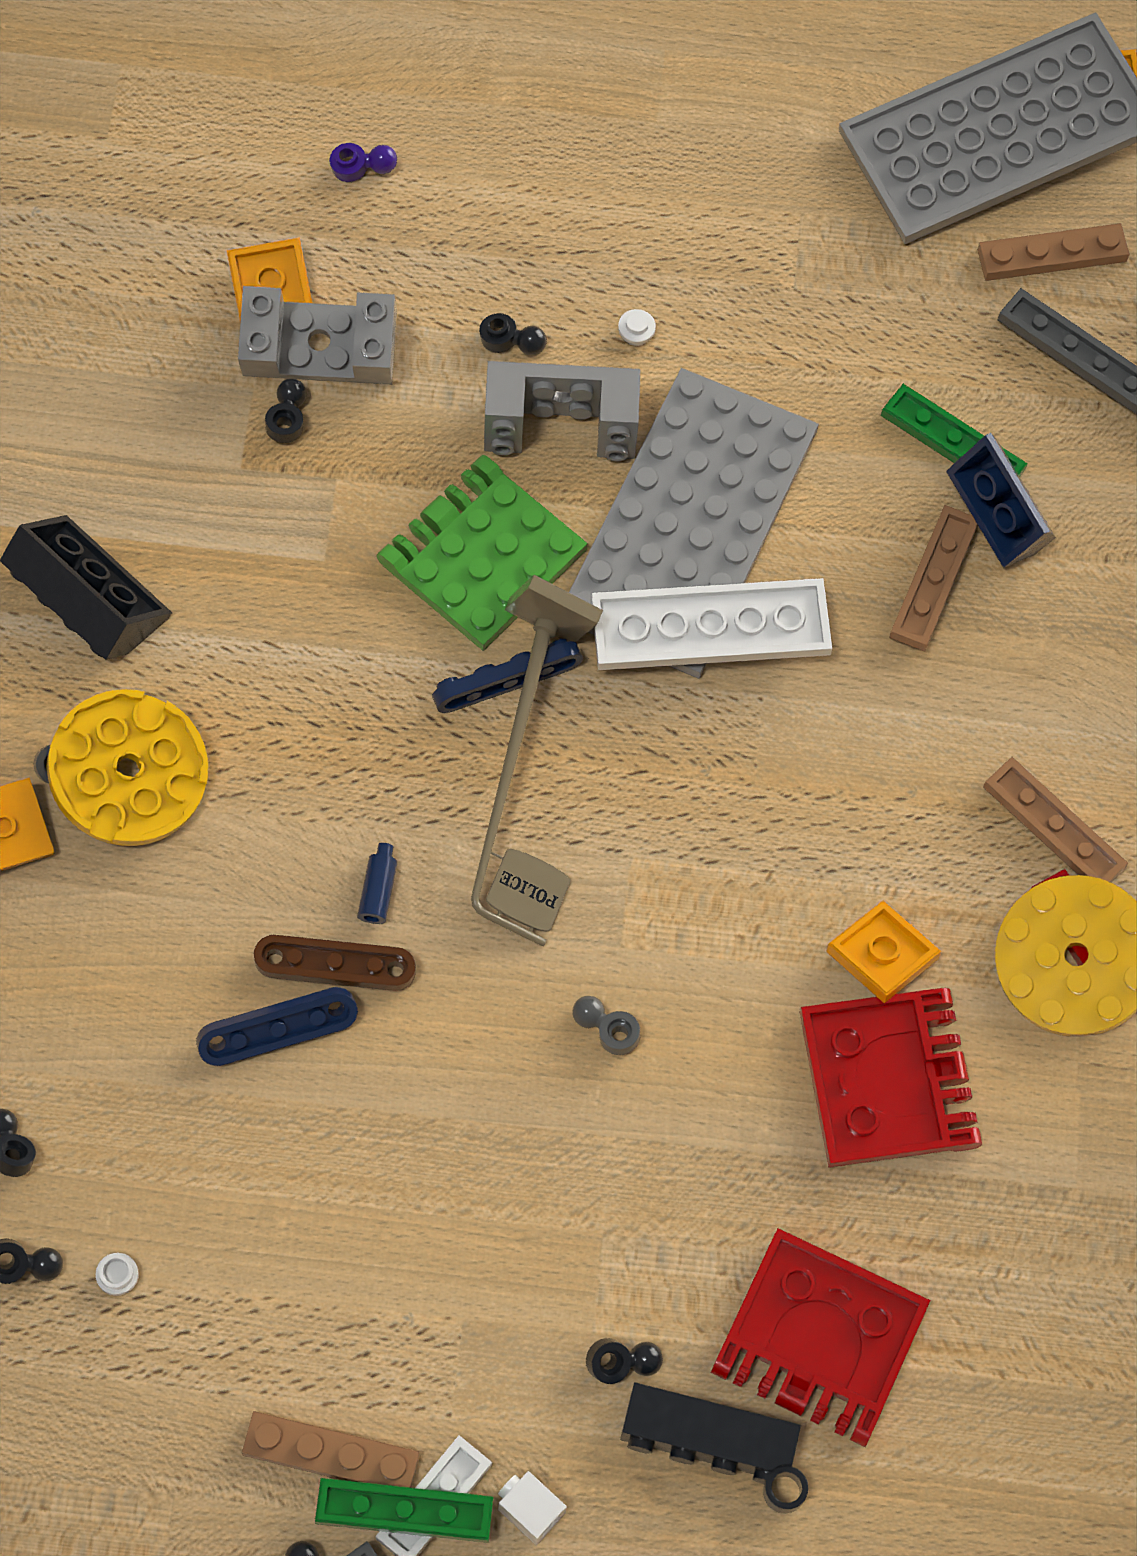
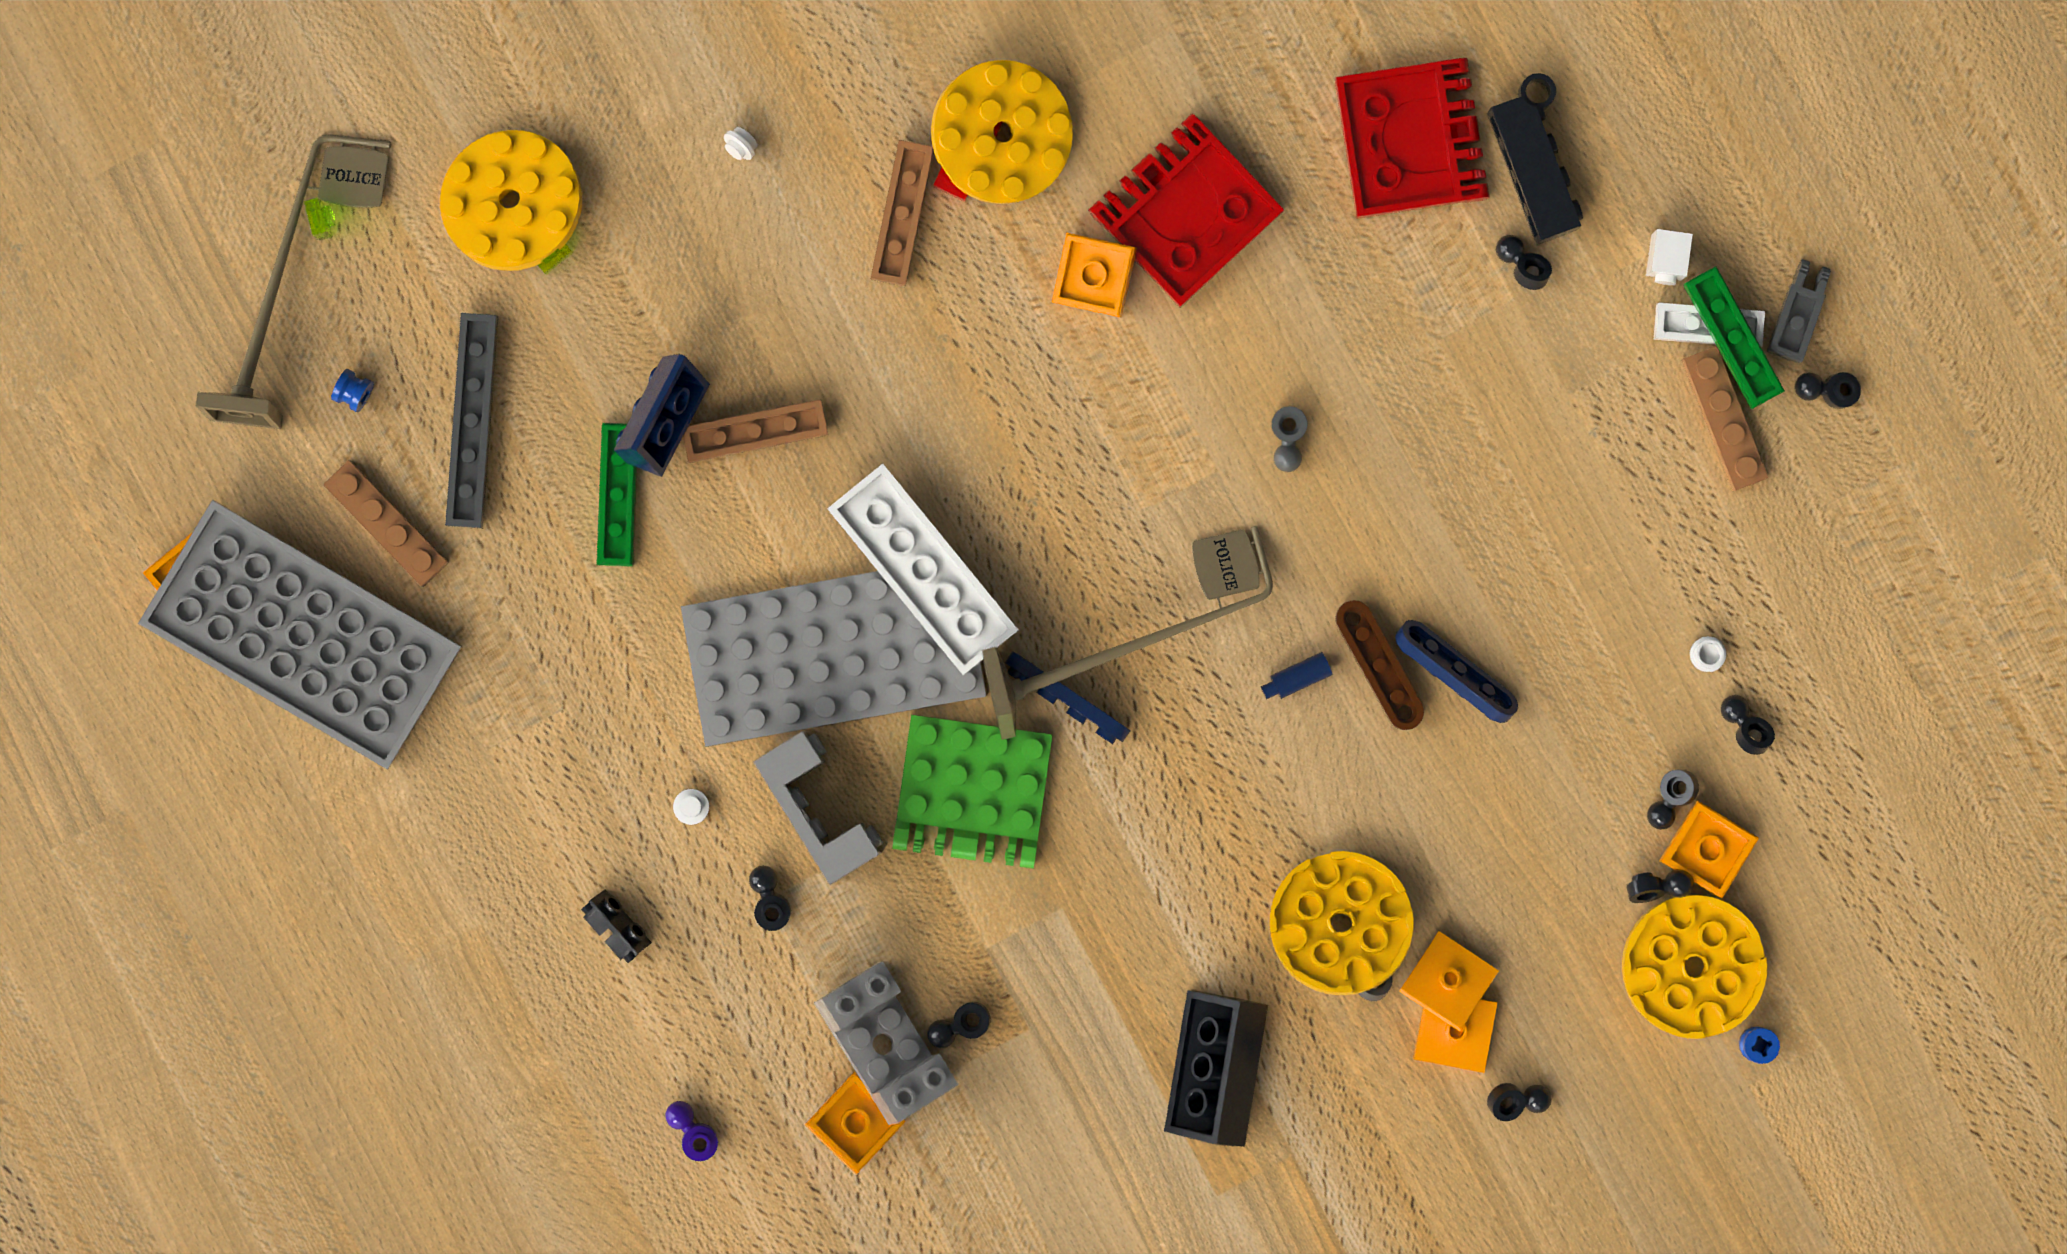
camera: 120 degrees left, 20 degrees up
(579, 212) = (606, 913): none -> black hinge

